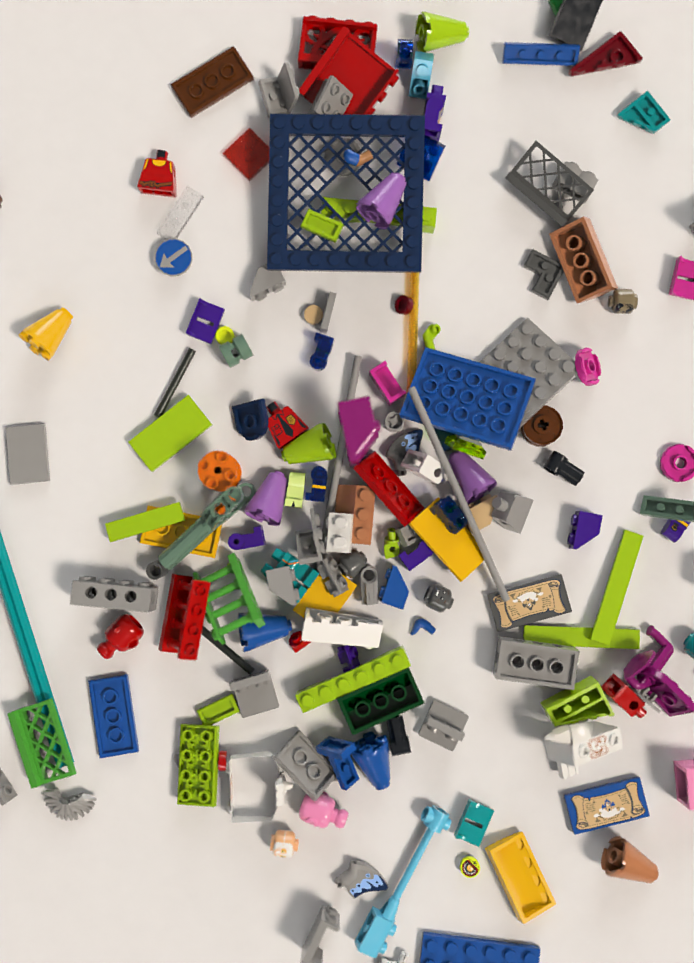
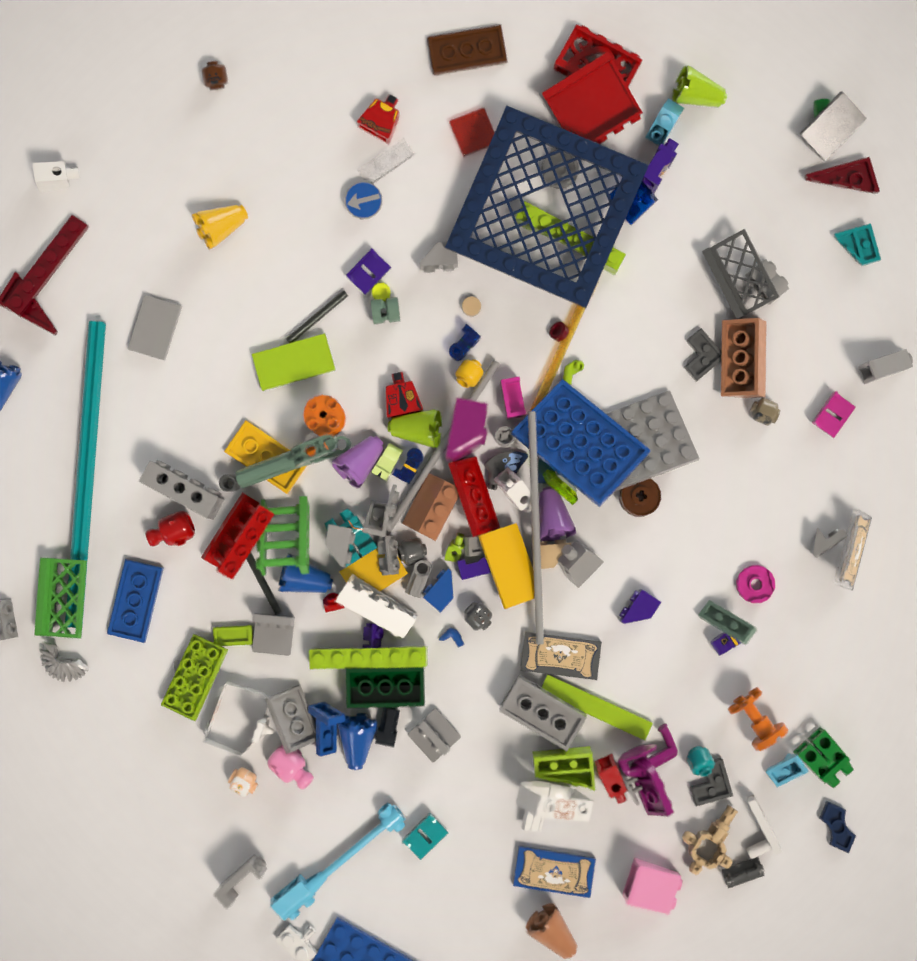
camera: 25 degrees right, 0 degrees up
(145, 522) = (237, 434): lime tile -> none
(222, 760) = (218, 682): red tile -> none
(239, 541) = (318, 489): dark purple leg -> none
(251, 419) = (373, 380): dark blue tile -> none
(280, 92) = (524, 86): light grey bracket -> none
(322, 225) = (511, 228): lime tile -> none
(327, 312) = (485, 309): light grey tile -> none
(331, 98) = (569, 113): light grey bracket -> none
(337, 377) = (469, 373): none -> yellow head
(339, 532) = (411, 517): white bracket -> none
(357, 159) = (568, 180): arm -> none
(361, 879) = (300, 844): light grey arm -> none
(382, 200) = (576, 228): medium lavender cone -> none
(404, 53) = (656, 96): clear blue leg -> none
(449, 514) = (519, 543): leg -> none
(469, 866) = (404, 875): tile -> none
(520, 876) = (447, 903): yellow slope -> none
(540, 53) = (785, 148): blue tile -> none
(560, 466) = (641, 540): black piece -> none
(587, 366) = (705, 459): dark pink tile -> none
(616, 587) = (647, 674): lime tile -> none

